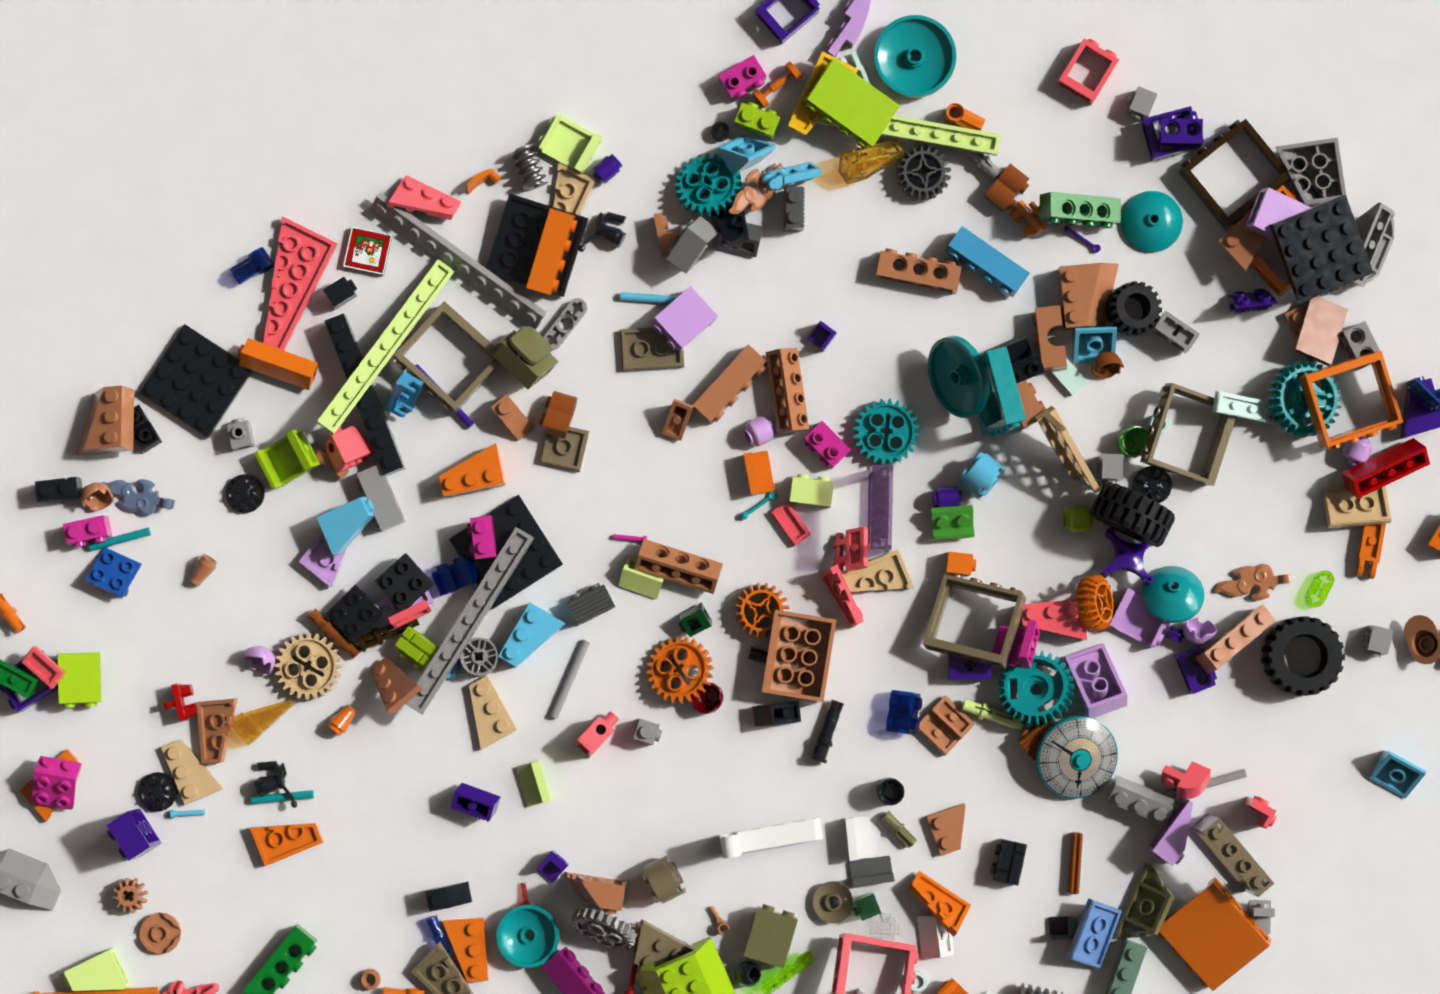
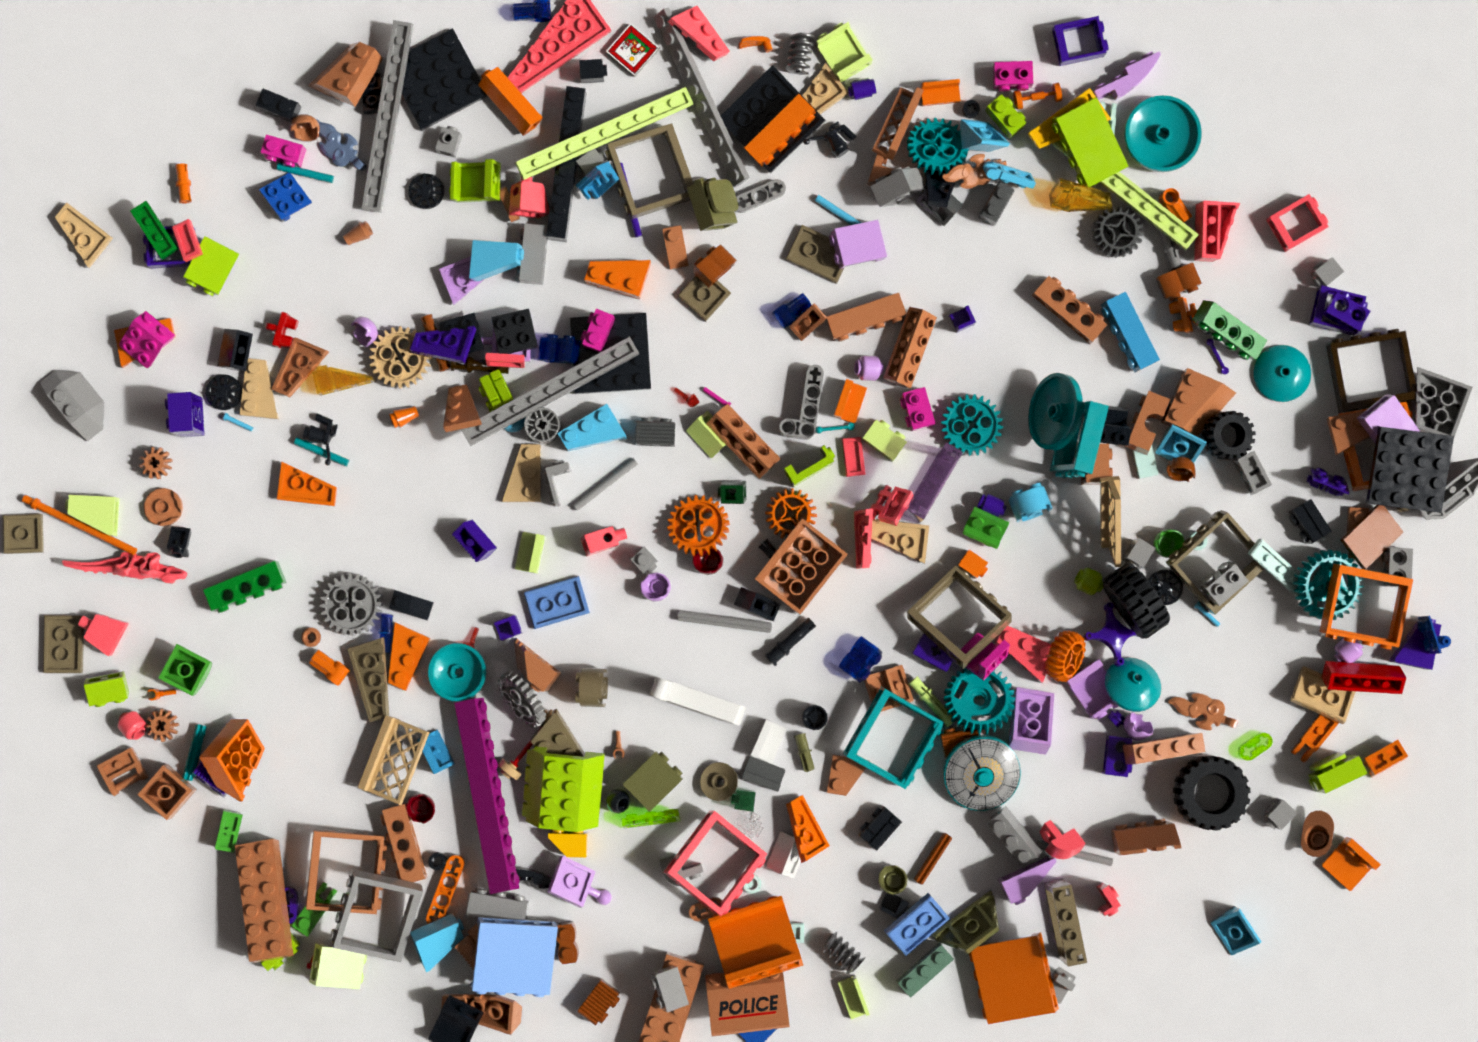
camera: 25 degrees right, 0 degrees up
(146, 745) = (235, 349): none -> black brick
(169, 442) = (387, 116): none -> light grey plate
(193, 958) = (179, 542): none -> black bracket
(345, 631) = (445, 345): none -> dark purple wing
(374, 937) = (333, 605): none -> light grey gear
(387, 379) = (590, 161): none -> light grey brick
(517, 689) = (558, 468): none -> light grey bracket
(585, 817) = (556, 602): none -> medium blue tile
(608, 554) = (692, 400): none -> clear red hand
(654, 420) = (787, 313): none -> clear blue piece
(665, 188) = (904, 122): none -> nougat fence
(671, 750) = (655, 587): none -> lavender hair
(683, 132) = (940, 92): none -> orange panel
(718, 495) = (806, 402): none -> light grey beam
(750, 573) = (795, 479): none -> lime panel
(755, 747) = (724, 621): none -> light grey axle
(1009, 779) = (866, 724): none -> teal window
(1010, 119) = (1213, 225): none -> coral wedge
(1048, 904) = (892, 879): none -> olive hair
(1205, 451) = (1223, 583): none -> light grey brick
(1205, 488) = (1206, 613): none -> medium azure piece
(1254, 348) = (1309, 522): none -> black brick
(1263, 731) = (1143, 836): none -> nougat wedge
(1408, 572) = (1335, 772): none -> lime brick

